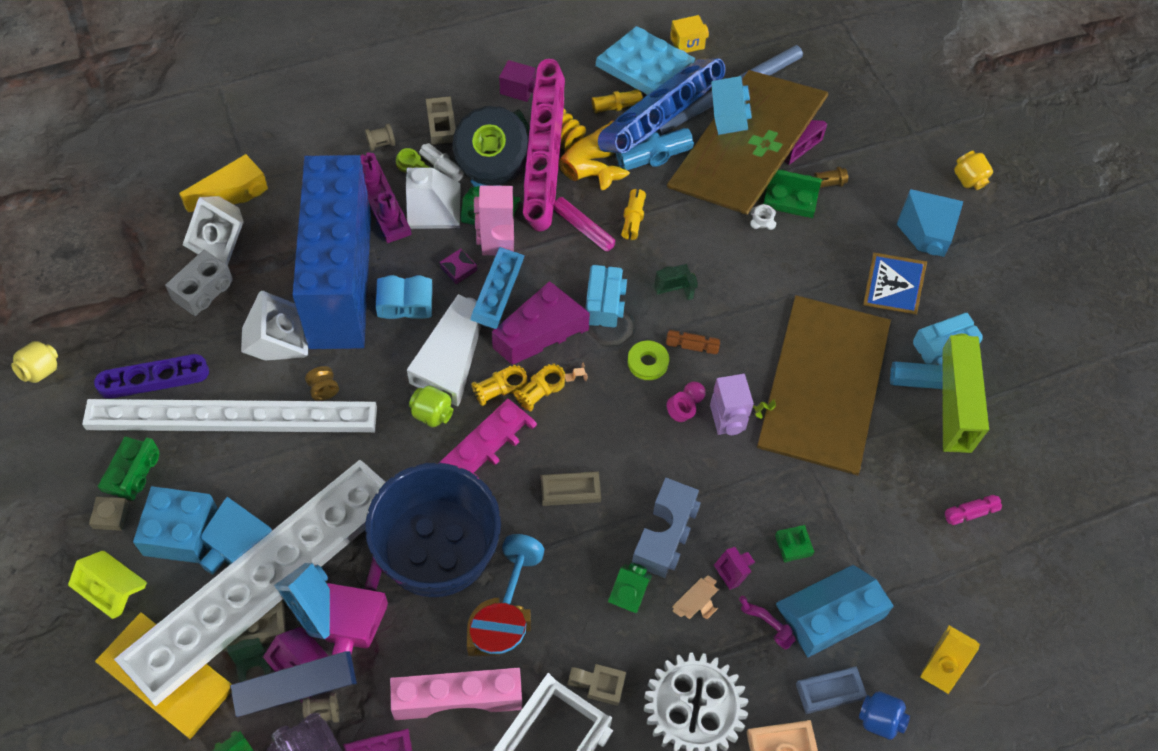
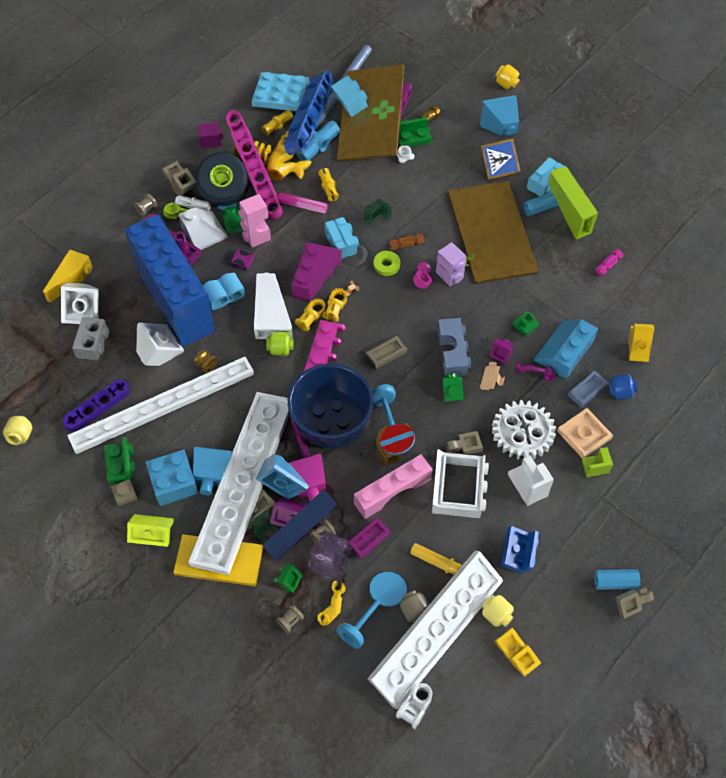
camera: 25 degrees left, 0 degrees up
(497, 288) = (277, 260): dark azure plate -> none
(689, 34) = (296, 64): yellow brick -> none

